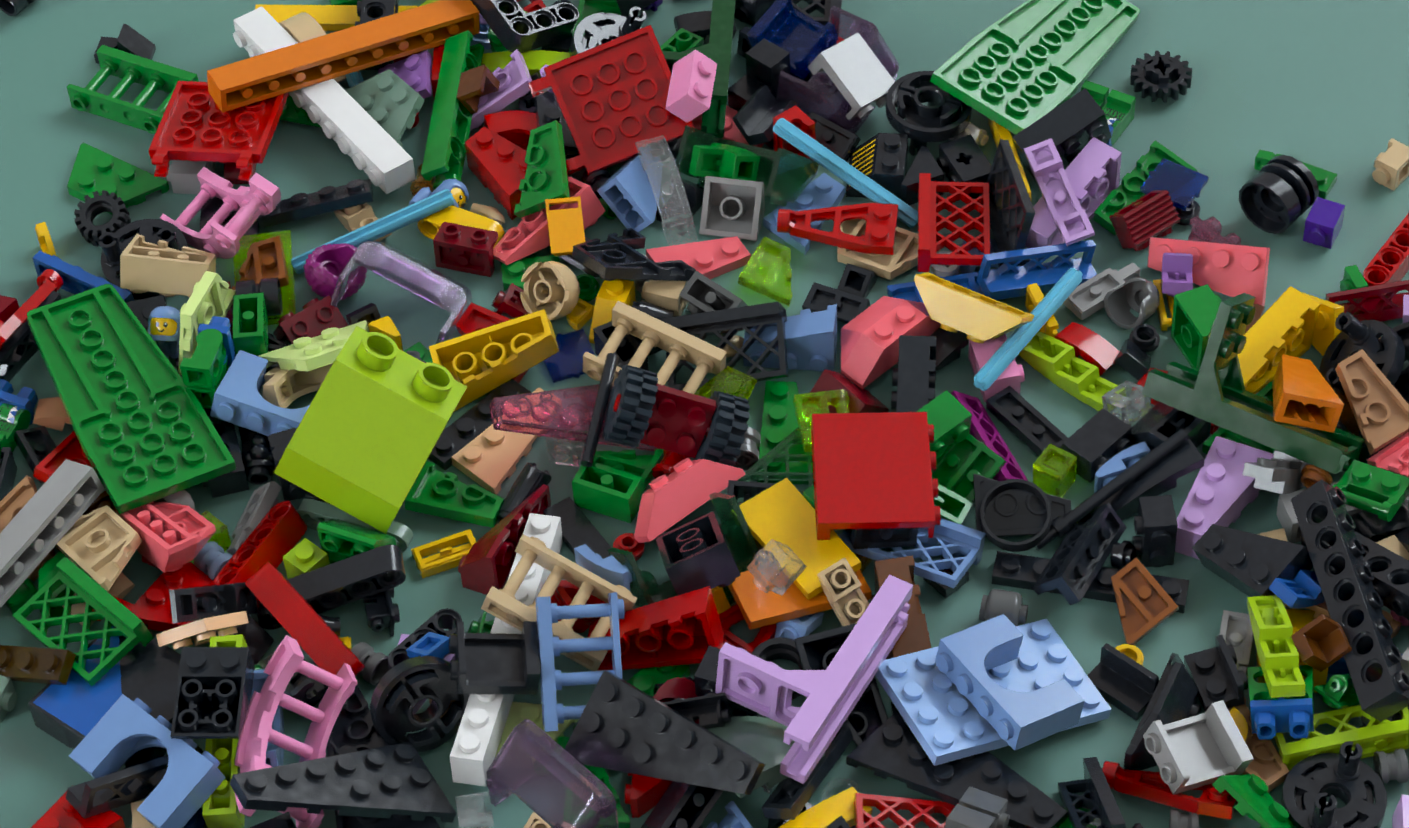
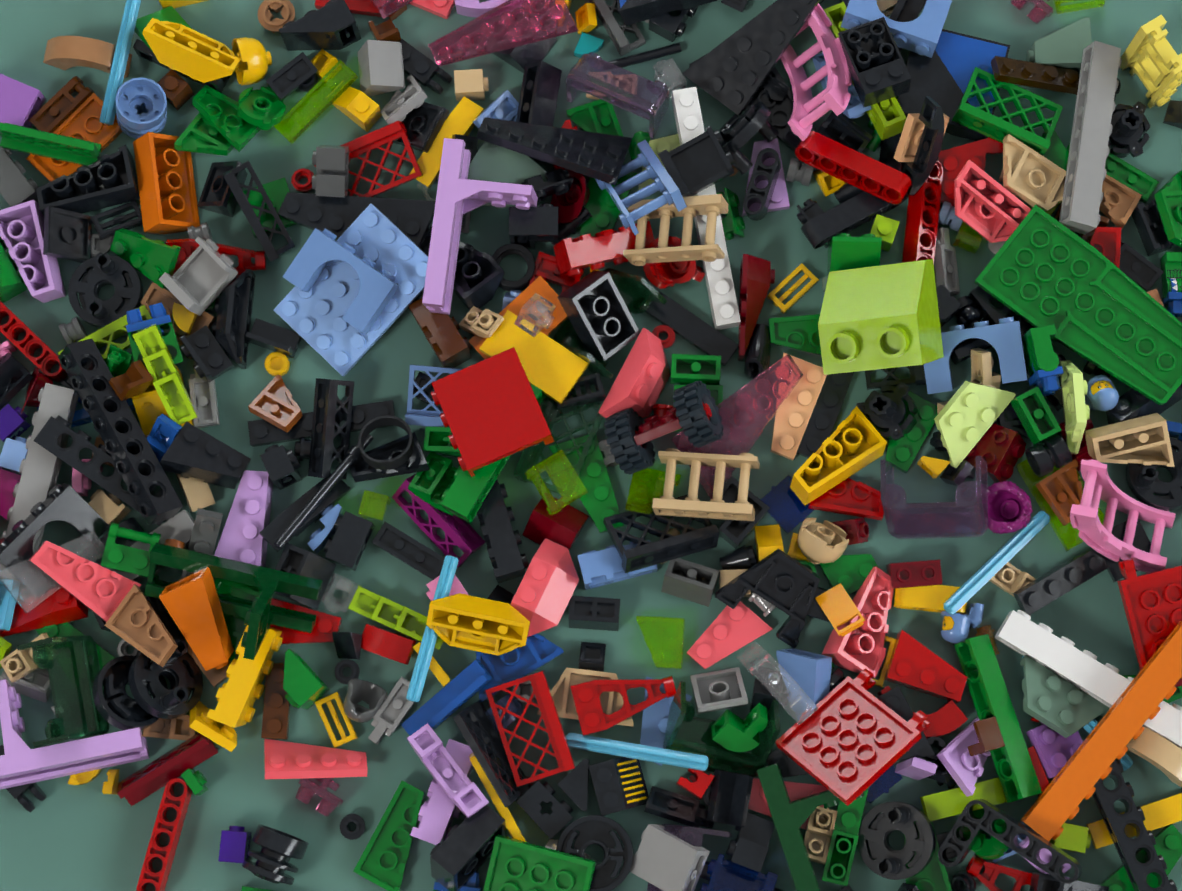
camera: 160 degrees right, 30 degrees up
(430, 645) = (750, 164): blue plate -> none
(489, 212) = (913, 624): tan arm -> none
(545, 170) = (879, 652): green wing -> none
(599, 410) = (724, 416): black bar -> none
(607, 568) = (654, 276): medium blue slope -> none
(691, 86) = (788, 762): bright pink brick -> none
(1006, 603) = (373, 367): dark grey head -> none
(1145, 218) = (379, 793): dark red brick -> none
(1176, 273) = (334, 732): medium lavender bracket -> none
(1179, 181) = (366, 845): clear blue piece -> none

